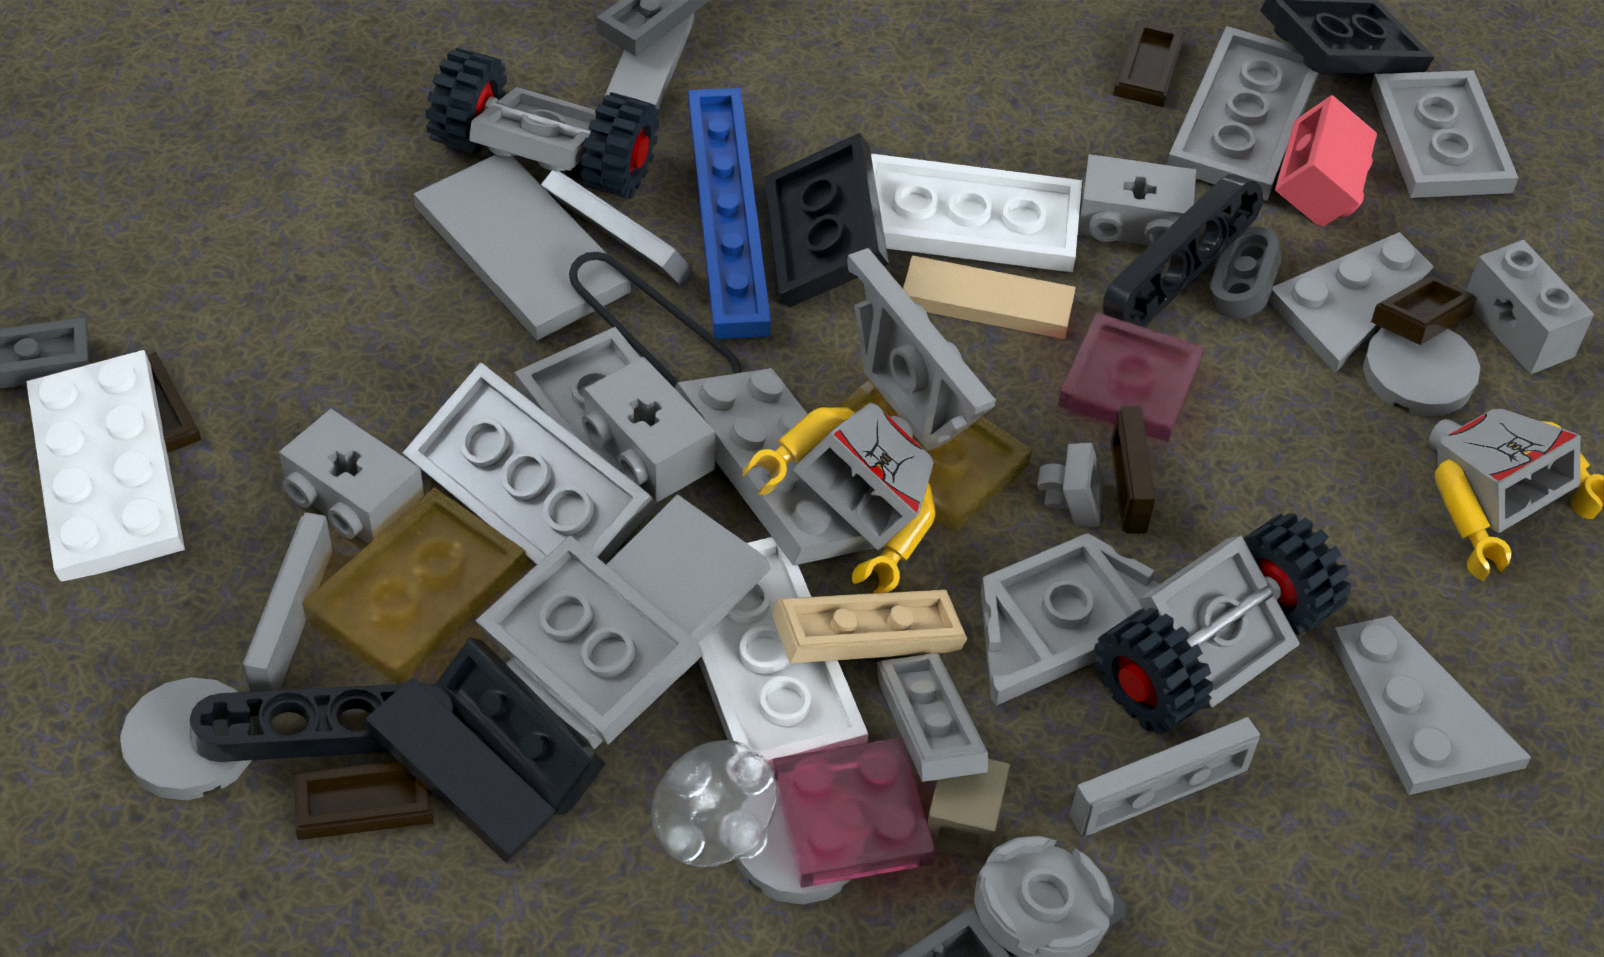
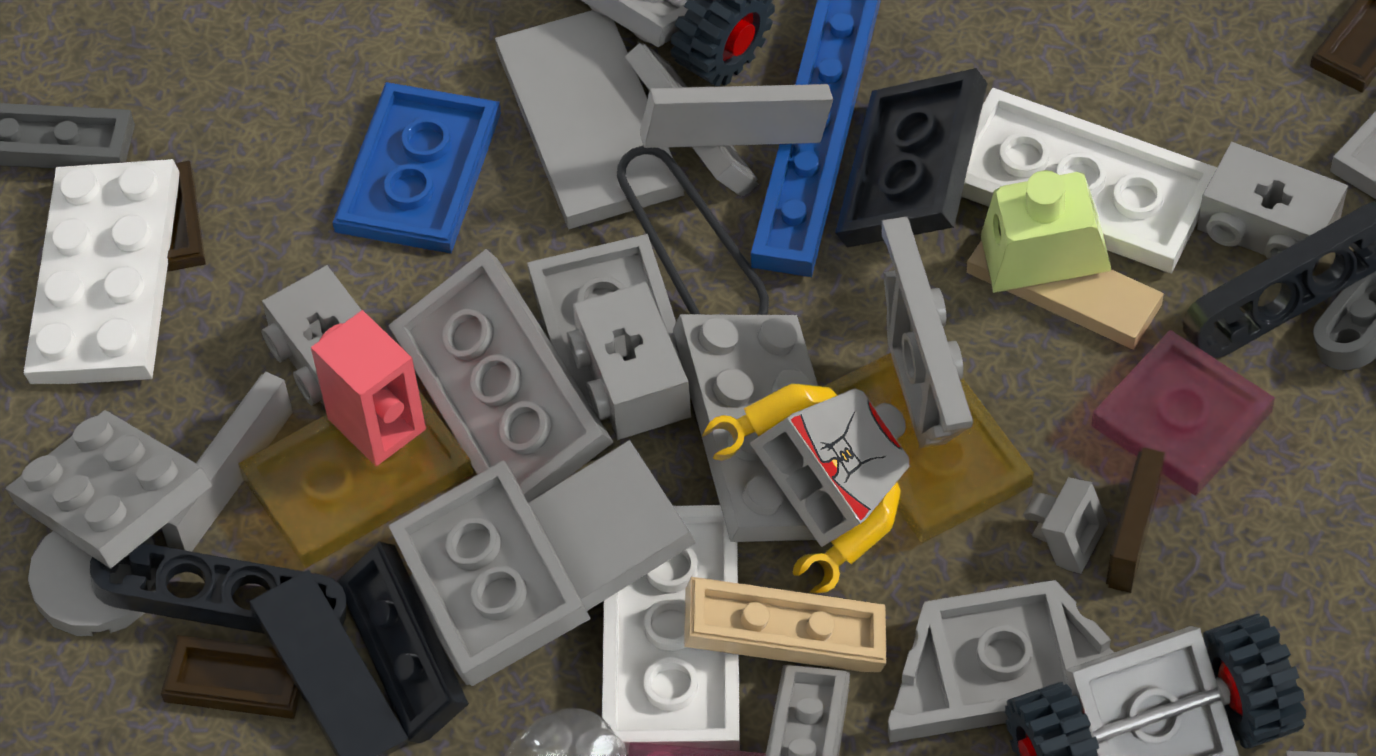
camera: 25 degrees right, 5 degrees up
(182, 651) = (108, 487): none -> light grey plate
(376, 317) = (417, 167): none -> blue tile
(418, 498) = (368, 387): none -> coral brick
(666, 207) = (735, 115): none -> light grey tile
(967, 251) = (1043, 232): none -> yellowish green torso

